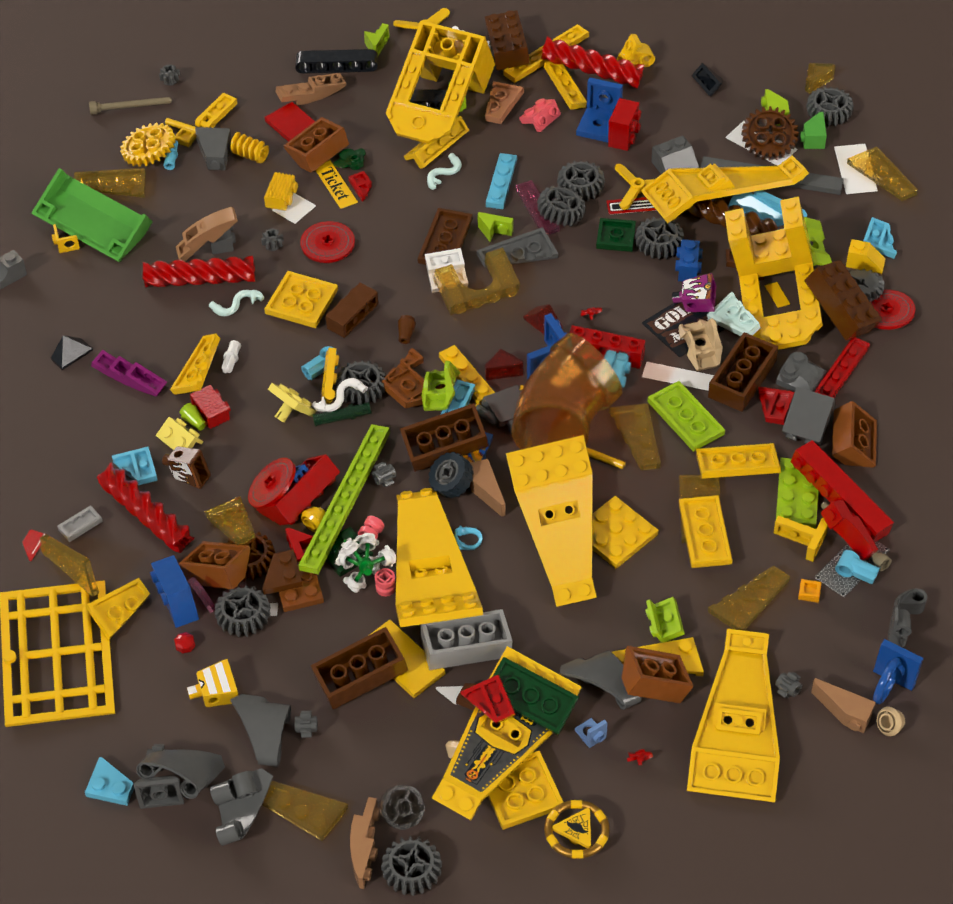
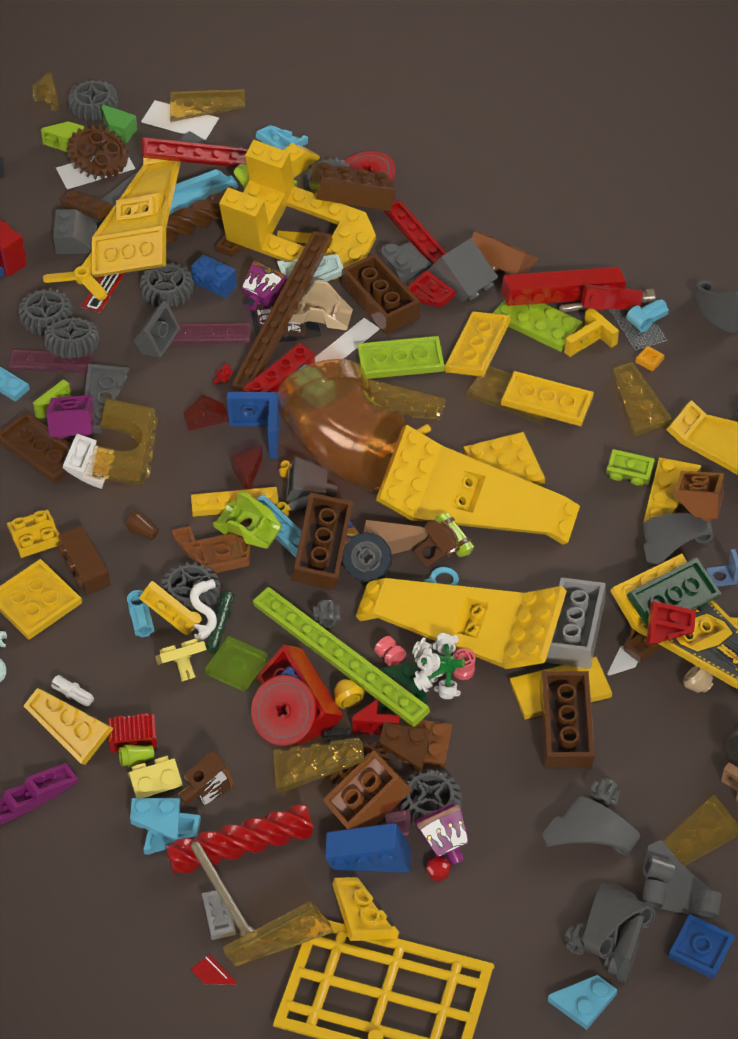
camera: 65 degrees left, 0 degrees up
(92, 512) = (221, 889): none -> dark tan piece
(140, 450) = (157, 815): none -> medium azure wing
(192, 846) = (701, 946): none -> blue plate
(209, 627) = (444, 832): none -> torso
(214, 685) = (513, 855): yellow torso -> none
(275, 529) = (336, 734): none -> black piece
(310, 440) = (236, 663): none -> clear neon green tile
(363, 270) = (34, 533): none -> yellow slope
(476, 236) = (70, 416): none -> magenta slope
(499, 516) = (446, 537): none -> reddish brown piece
(599, 250) = (157, 332): none -> dark grey slope
(616, 234) = (132, 314): dark green plate -> none
(630, 287) = (213, 333): none -> clear pink tile
(680, 315) = (283, 310): none -> reddish brown plate
(709, 151) = (86, 204): none -> reddish brown plate
(807, 189) = (193, 152): none -> red tile

